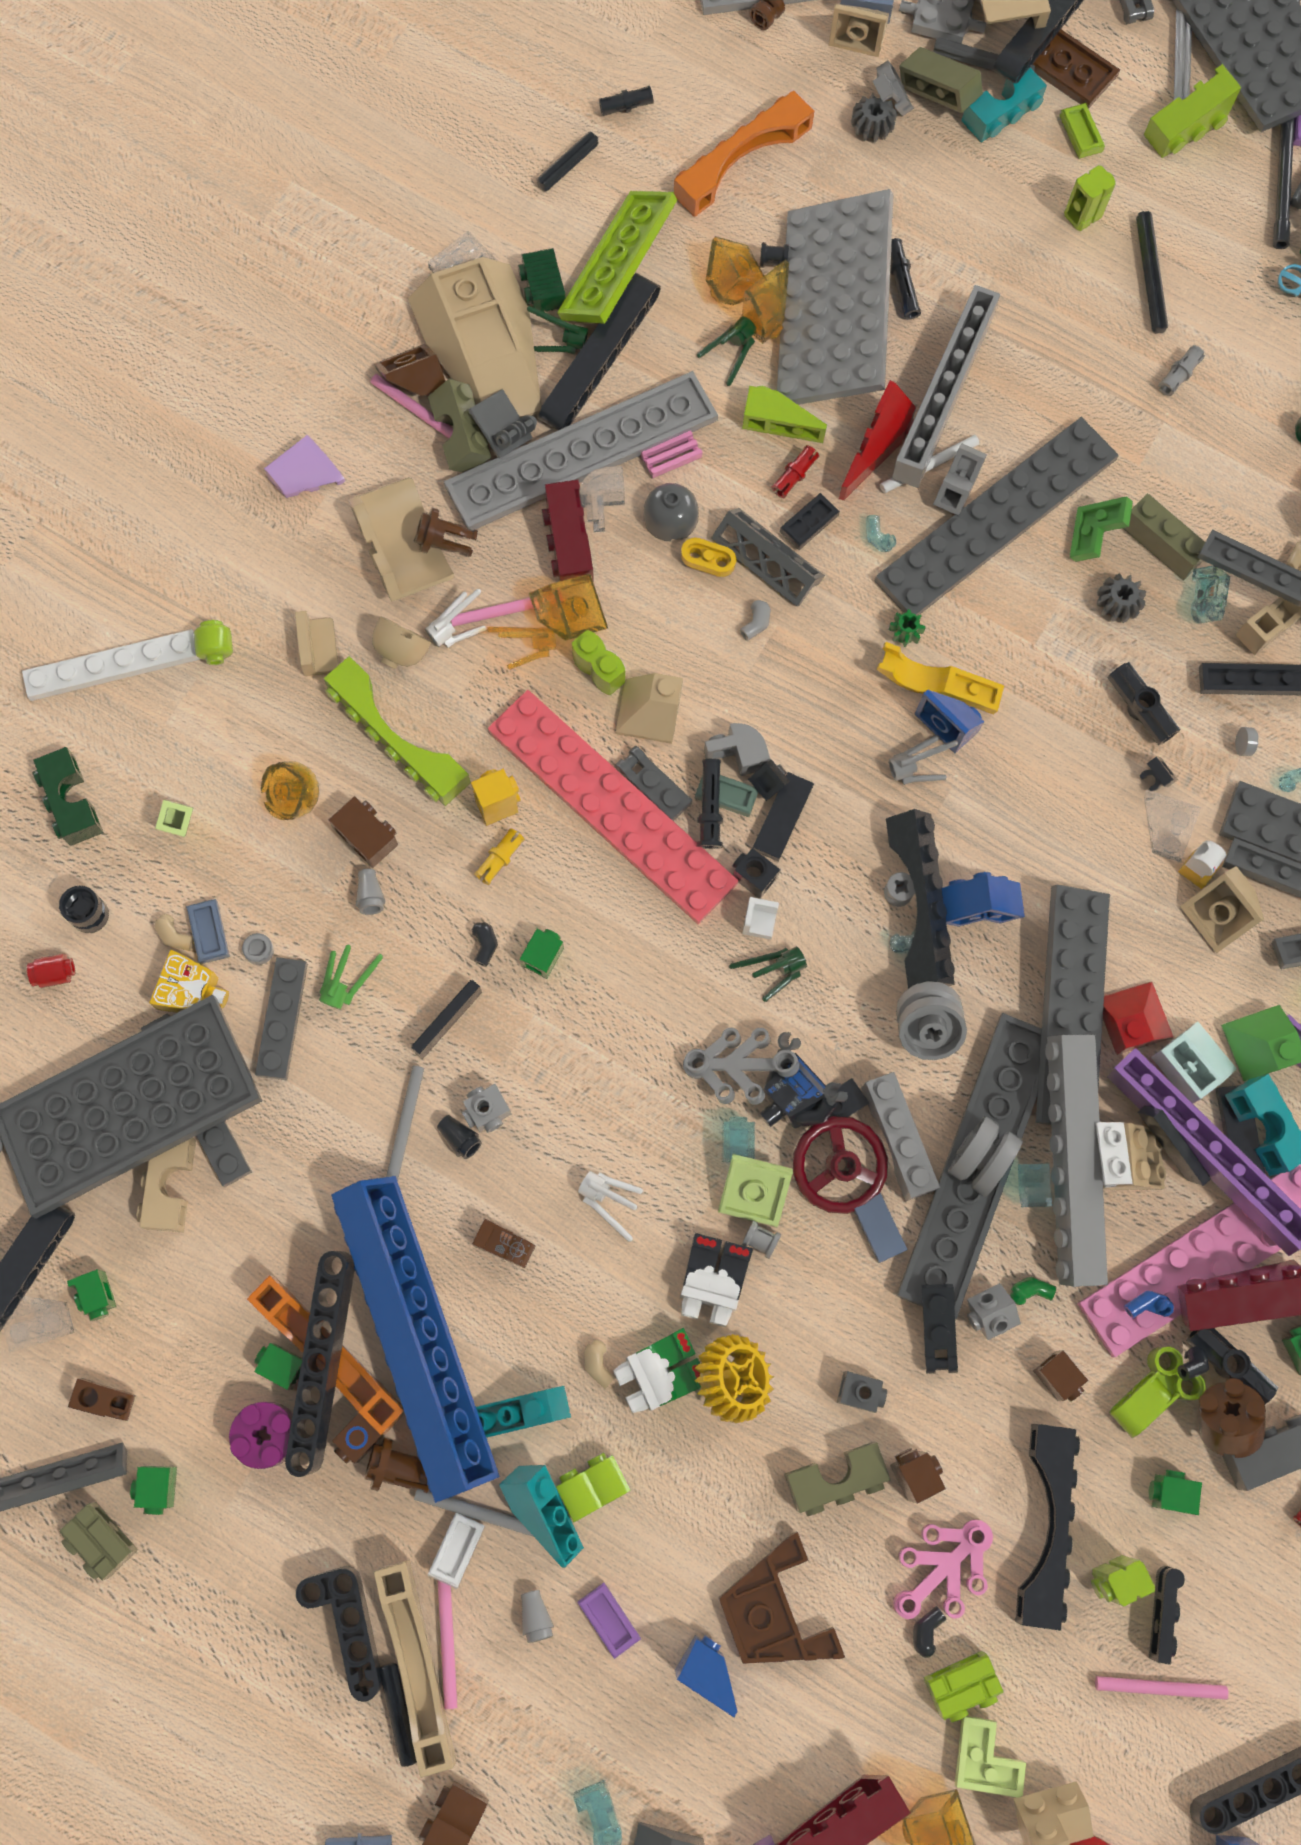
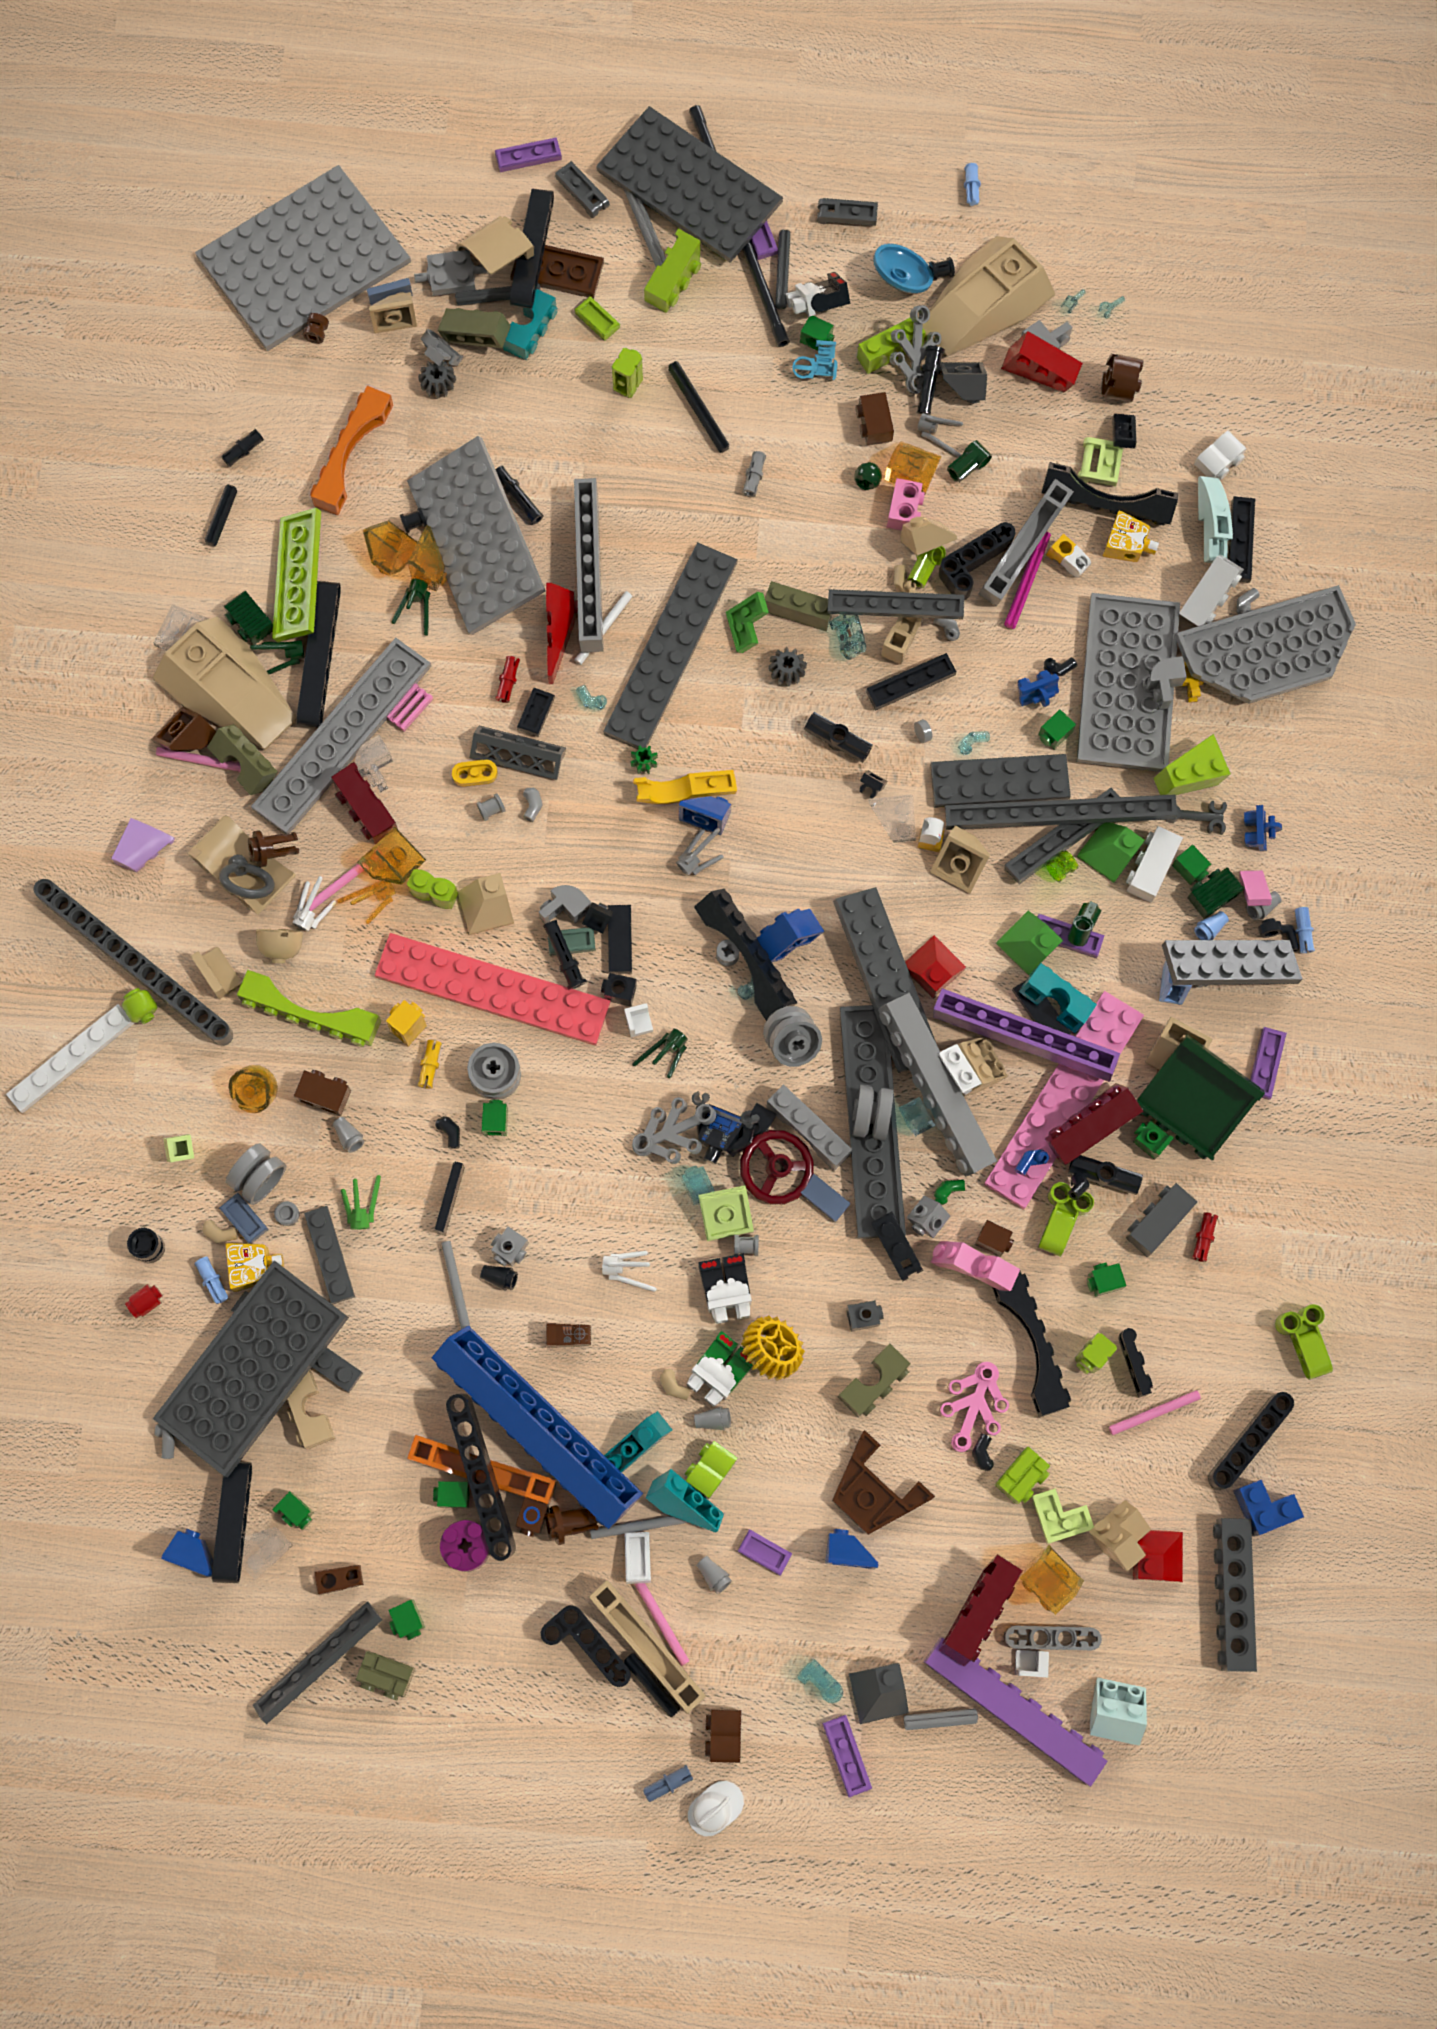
camera: 25 degrees left, 0 degrees up
(57, 775) = (74, 1157): dark green arch -> none
(136, 983) = (211, 1280): none -> light blue axle
(233, 603) = (125, 954): none -> dark grey beam
(243, 887) = (256, 1173): none -> light grey wheel
(402, 534) = (239, 865): none -> dark grey piece
(502, 423) = (274, 743): dark grey hinge -> none
(565, 881) = (489, 1058): none -> light grey wheel
(625, 1428) = (713, 1419): none -> light grey cone
(654, 783) = (515, 958): dark grey plate -> none
(671, 512) = (430, 752): dark grey cylinder -> none
(708, 602) = (491, 807): none -> light grey bush
(777, 415) = (474, 642): lime slope -> none
(918, 1475) = (927, 1350): reddish brown brick -> none
(960, 479) = (631, 631): light grey brick -> none
(1019, 1391) = (973, 1263): none -> bright pink arch
(1174, 1145) = (999, 1043): black tile -> none
(1194, 1063) = (988, 979): light aqua slope -> none
(1232, 1418) = (1120, 1210): reddish brown brick -> none

